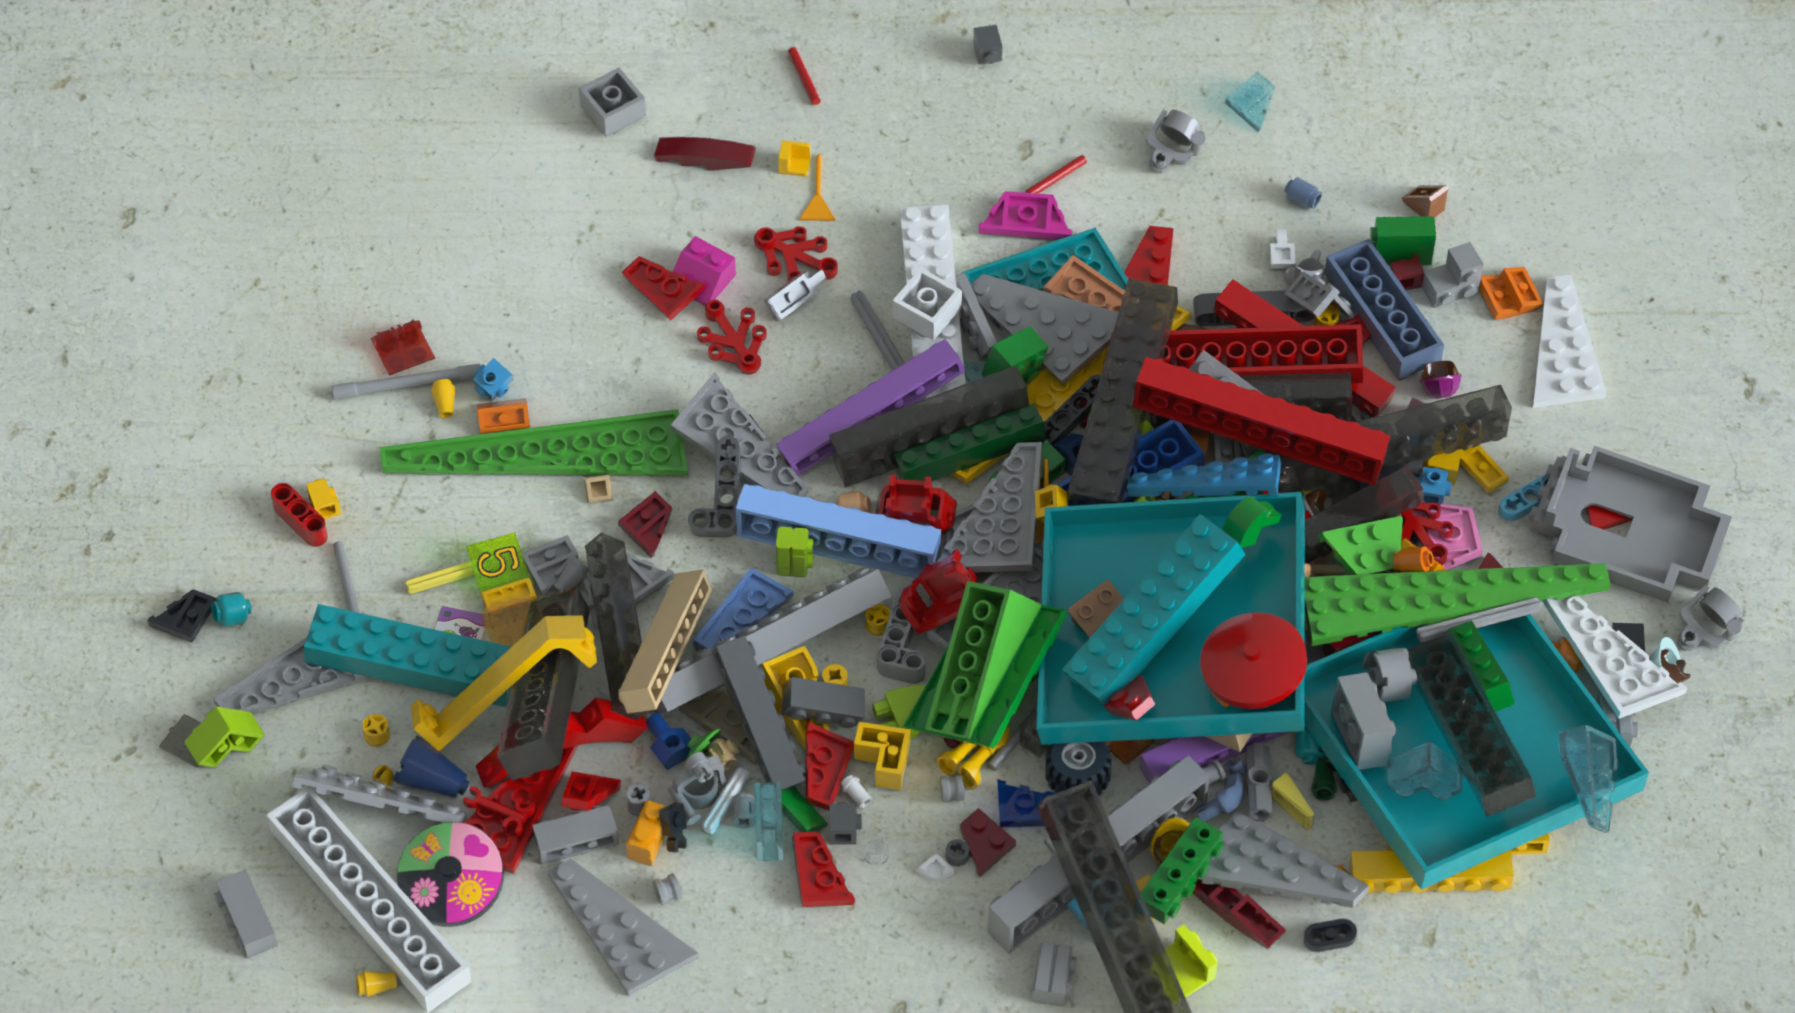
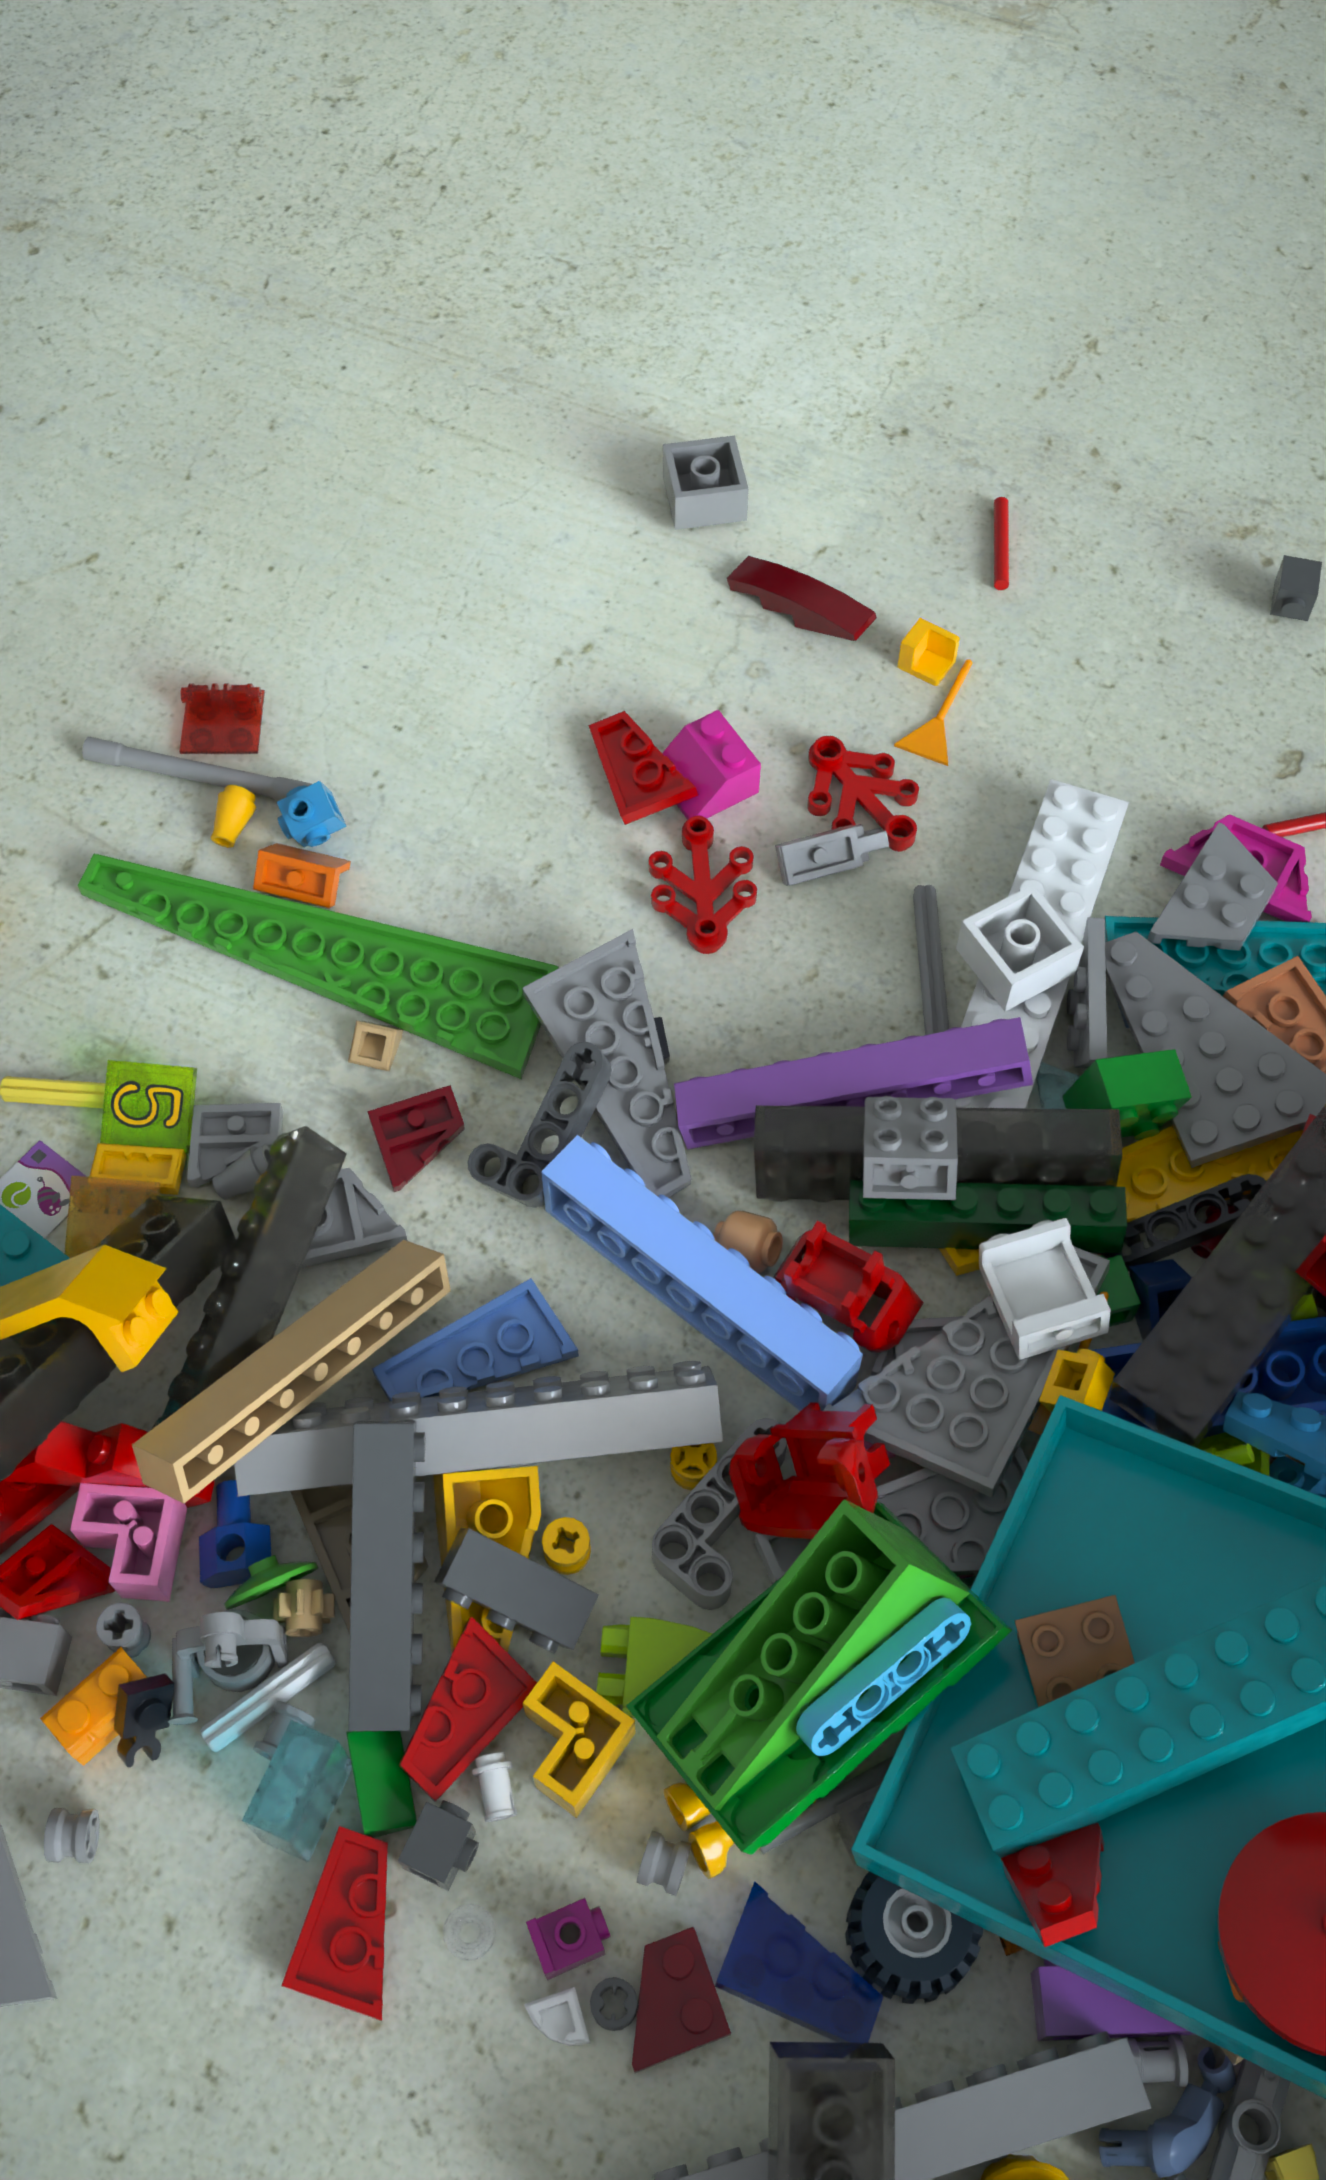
camera: 25 degrees right, 5 degrees up
(620, 751) = (141, 1528): none -> bright pink brick
(794, 552) = (607, 1282): lime brick -> none
(919, 424) = (910, 1148): none -> light grey bracket
(921, 841) = (558, 1956): none -> magenta brick
(1014, 466) = (1042, 1289): none -> white panel
(1017, 239) = (1217, 896): none -> light grey wing
(1033, 626) = (841, 1712): none -> medium azure beam

